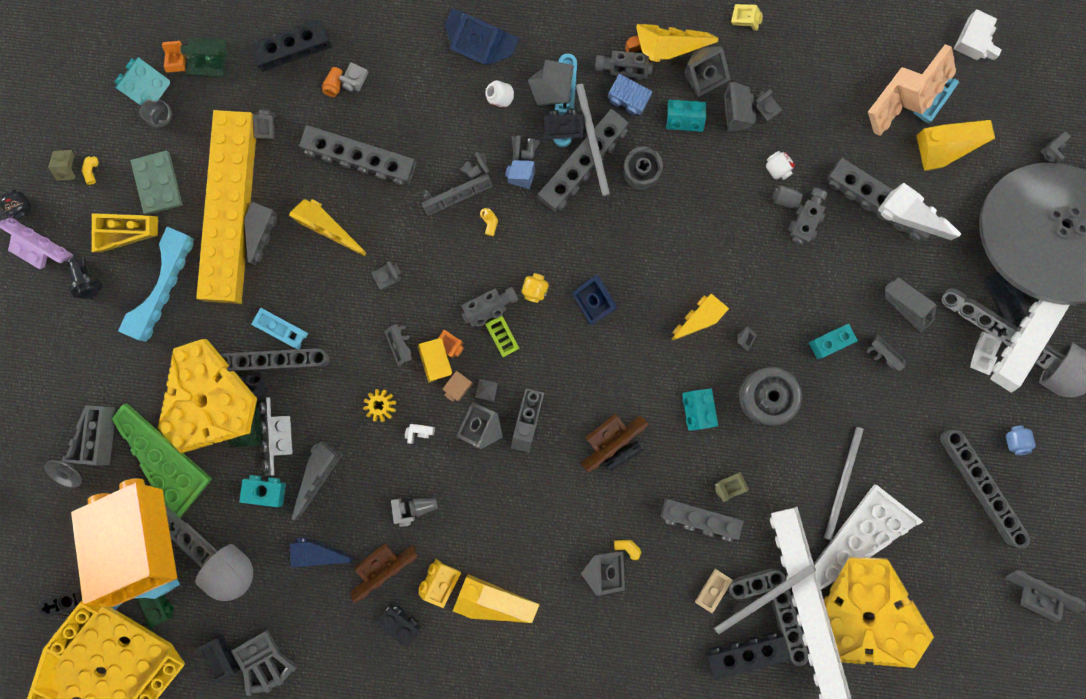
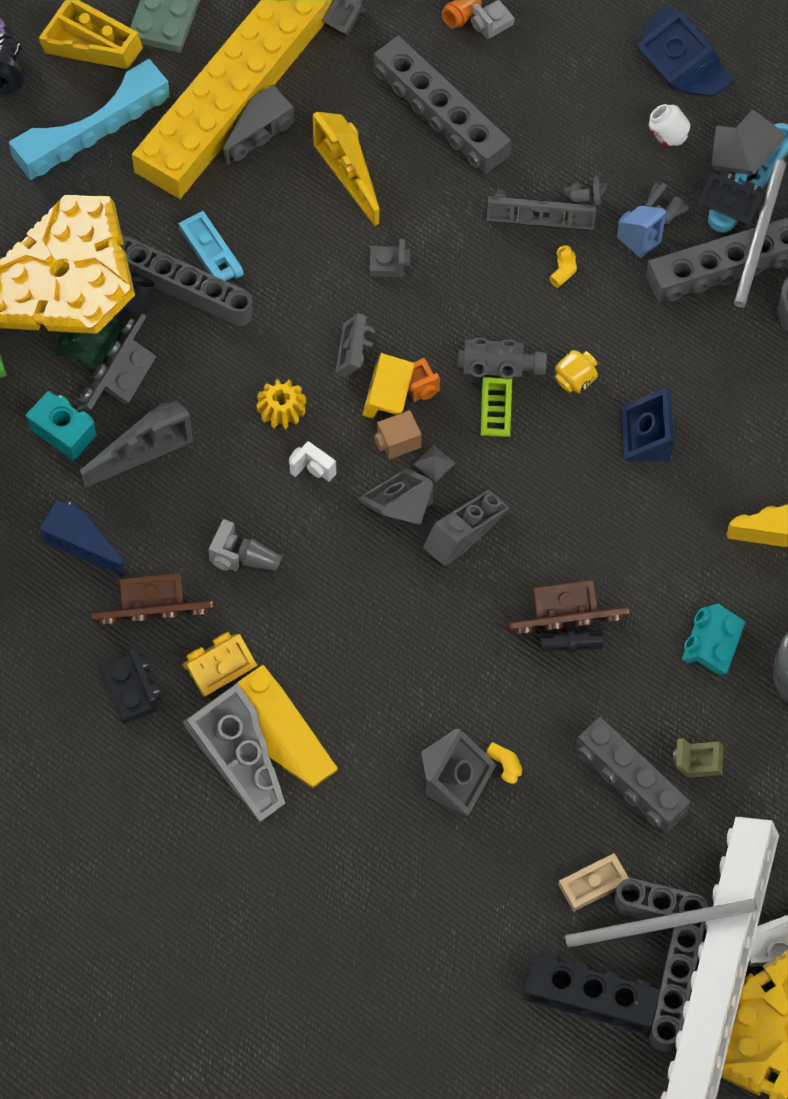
camera: 25 degrees right, 20 degrees down
(475, 628) = (235, 745): none -> light grey wedge

